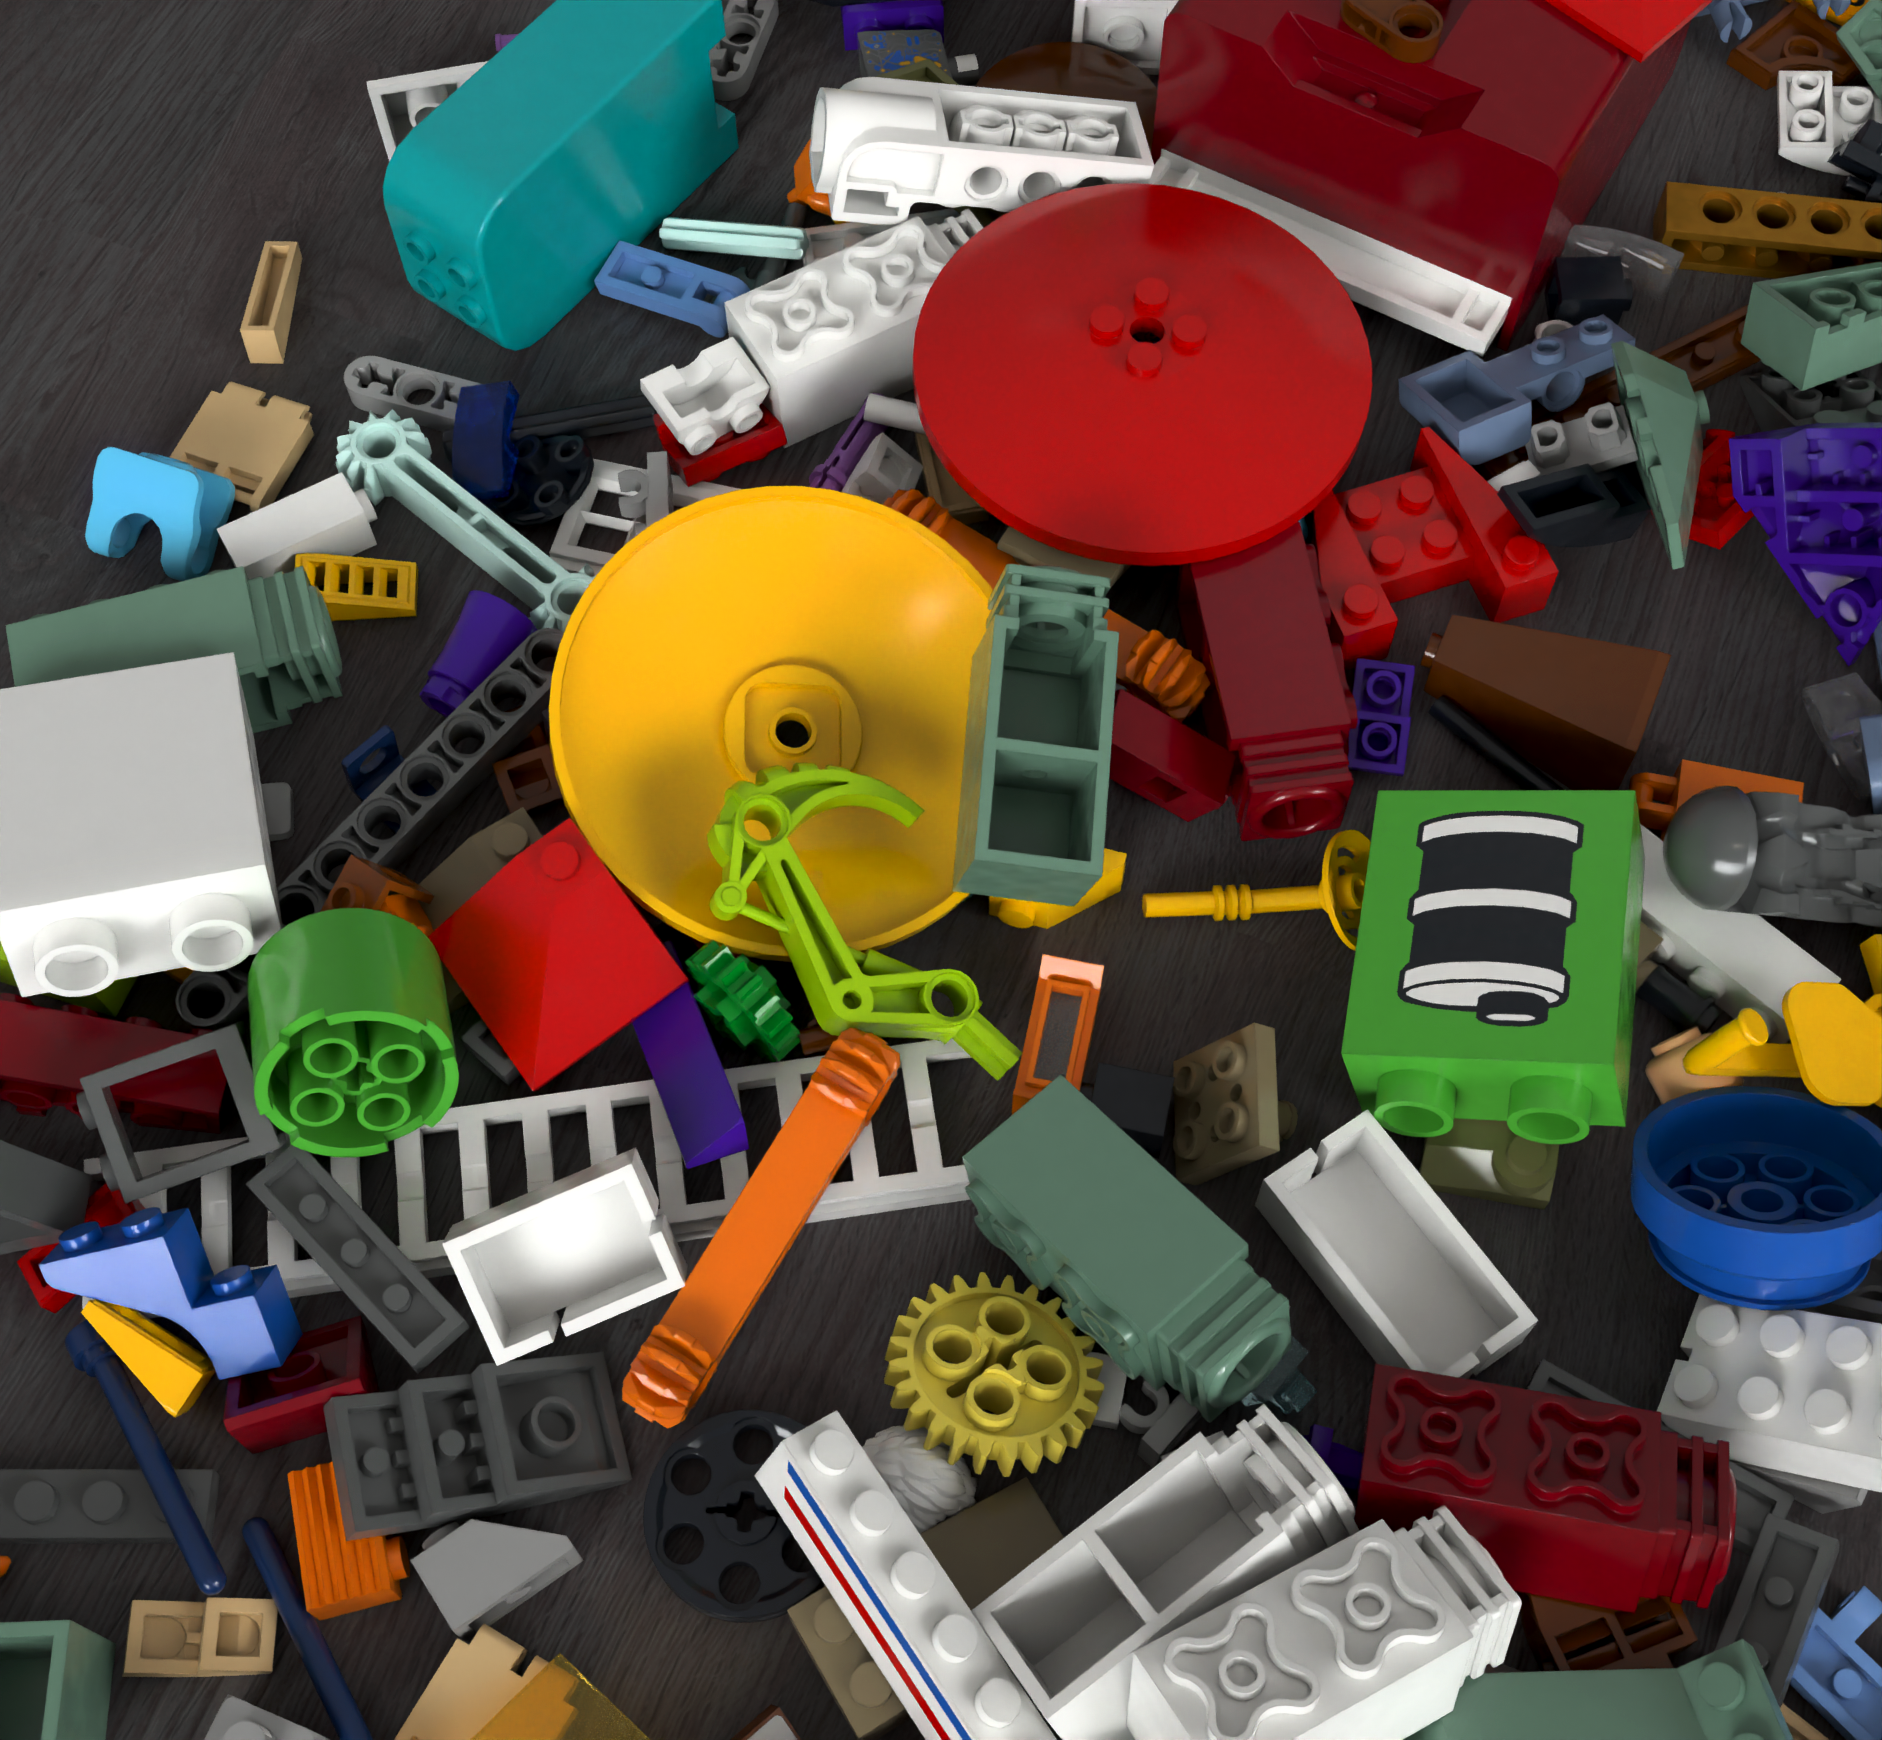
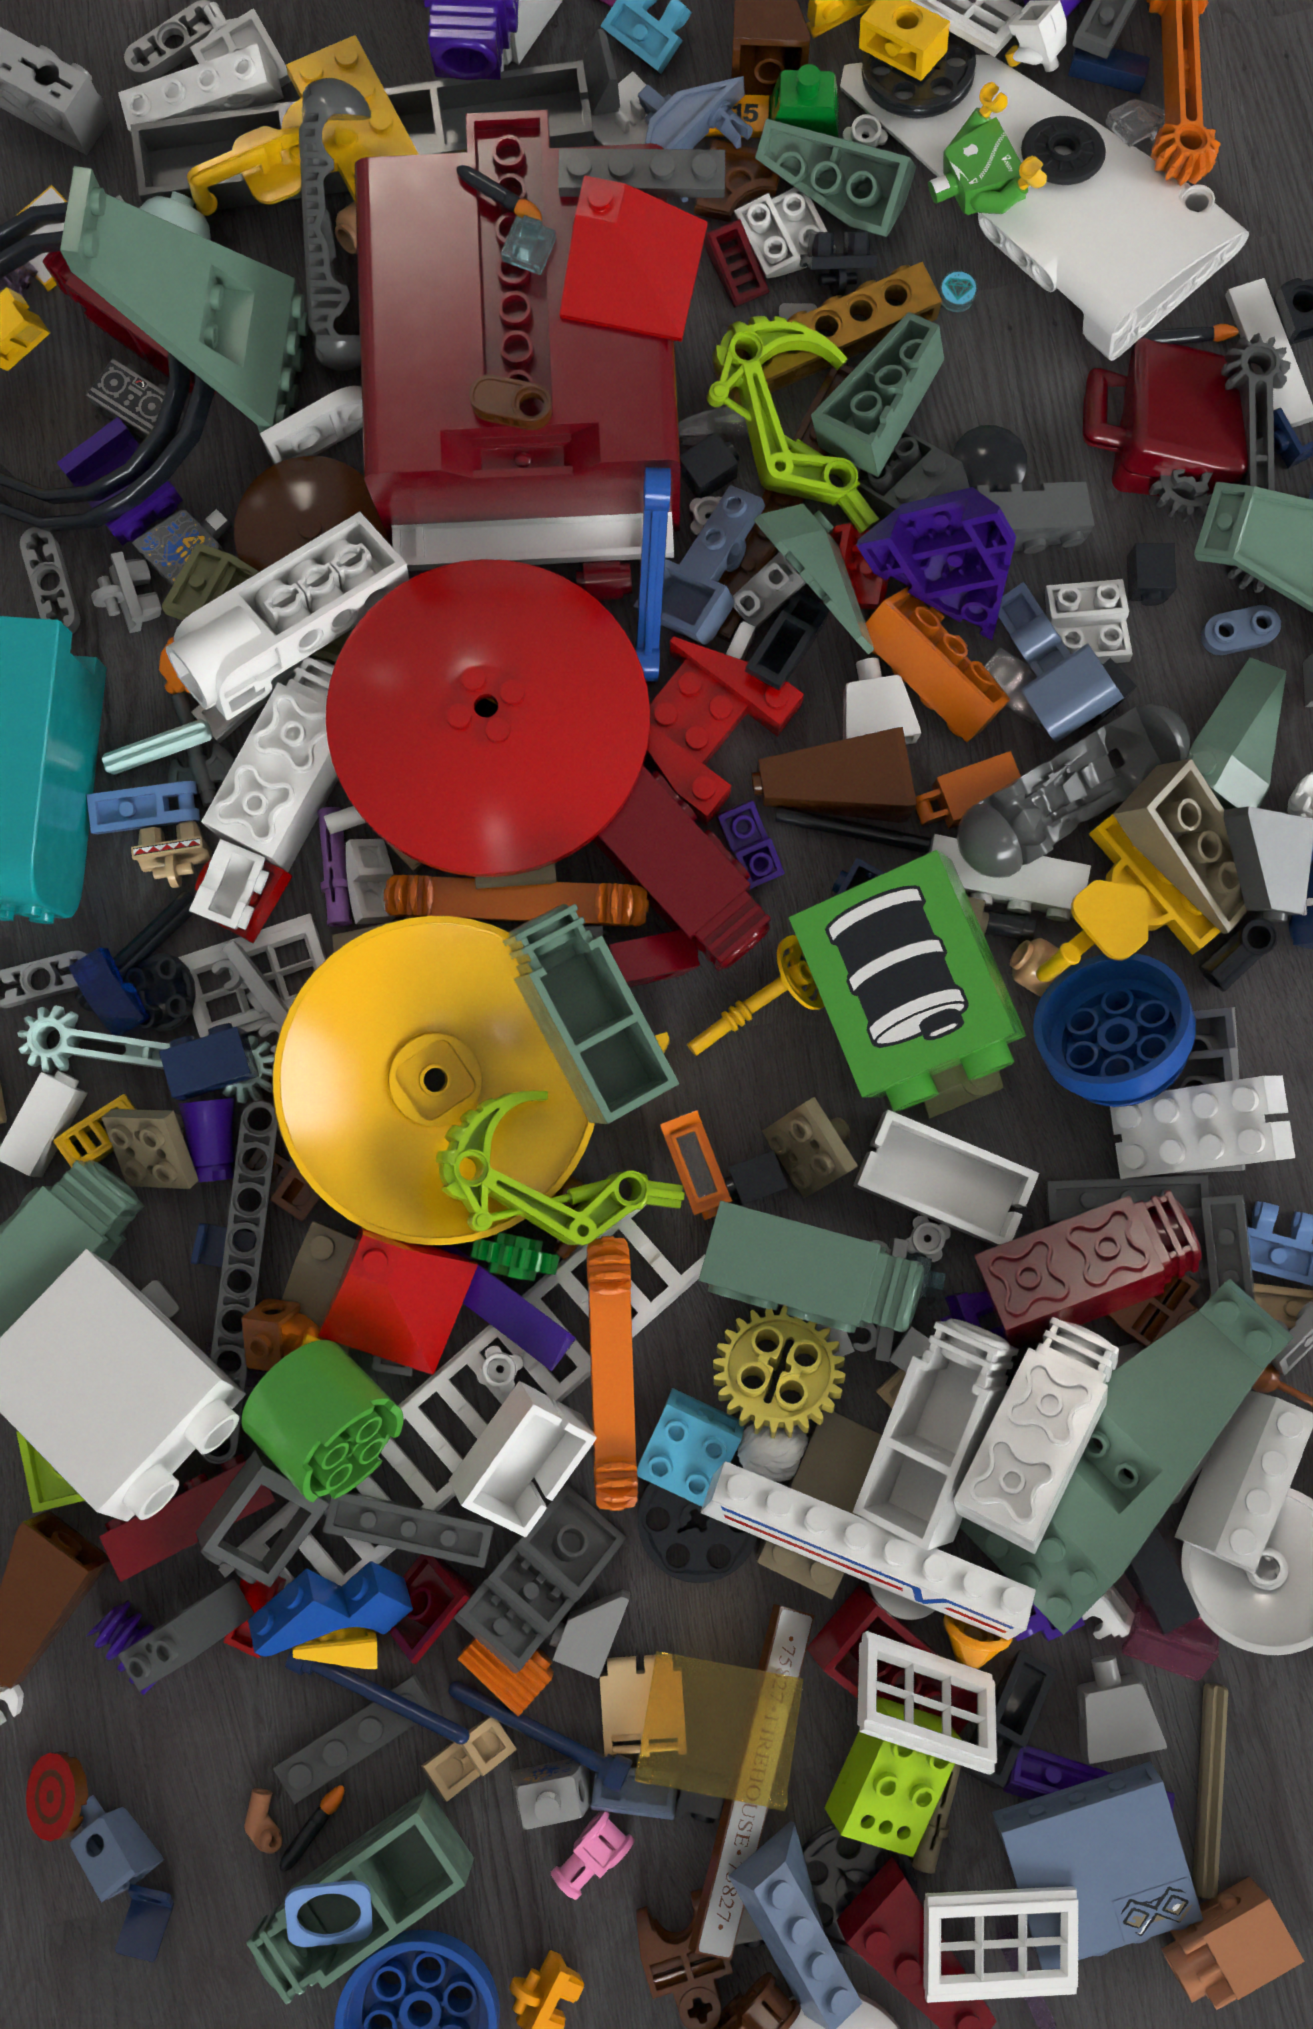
camera: 30 degrees left, 20 degrees up
(399, 619) = (151, 1148): none -> dark tan plate
(535, 557) = (208, 1062): none -> dark blue brick
(617, 1114) = (503, 1380): none -> white plate
(656, 342) = (172, 857): none -> tan hips
(792, 1383) = (689, 1446): none -> medium azure bracket
(798, 75) = (126, 575): none -> light grey hips
(1338, 1342) = (938, 1235): none -> white plate
(1390, 343) = (605, 579): none -> dark red brick
(1501, 214) = (653, 549): none -> blue piece
(1659, 626) = (877, 704): none -> white torso
(1682, 319) = (794, 471): none -> lime piece
(1750, 90) = (736, 232): none -> dark red slope
(1754, 641) = (935, 664): none -> orange wedge

